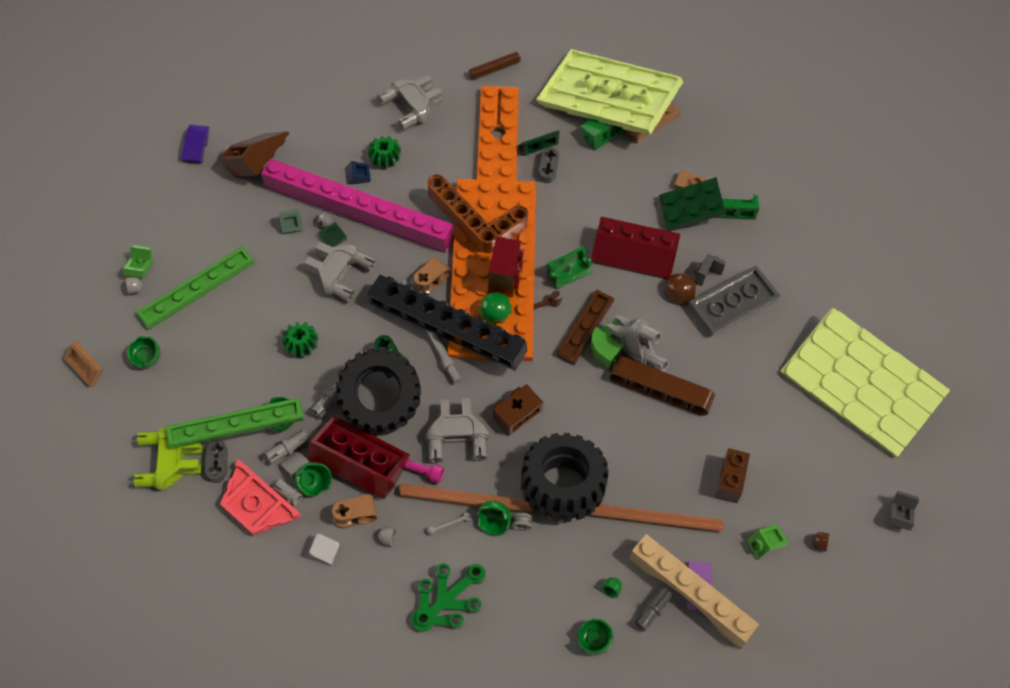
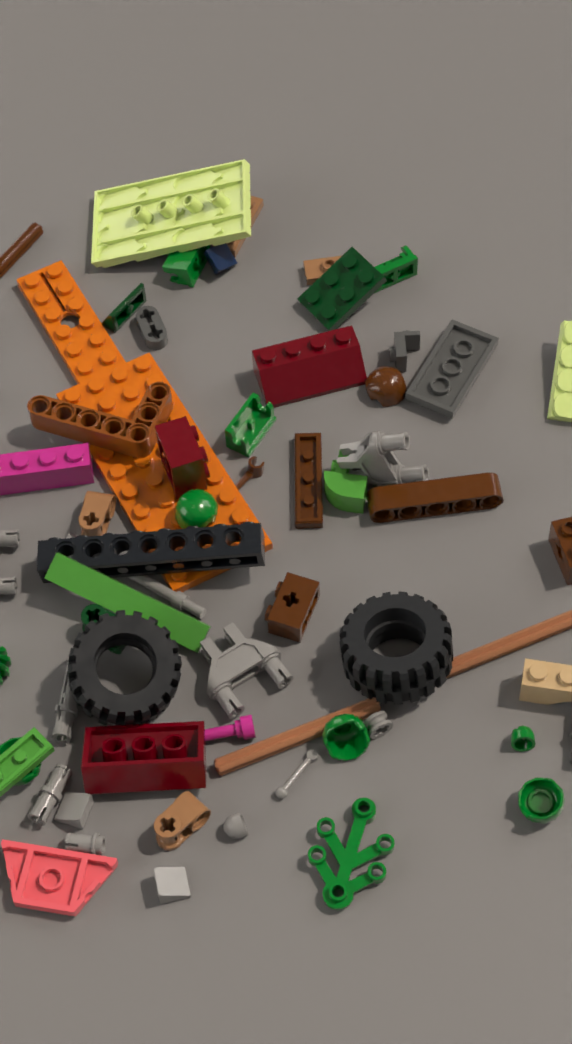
camera: 25 degrees left, 5 degrees down
(313, 479) = (108, 810): green hair -> none
(411, 346) = (118, 596): none -> bright green tile
(624, 139) = (220, 258): none -> dark blue slope

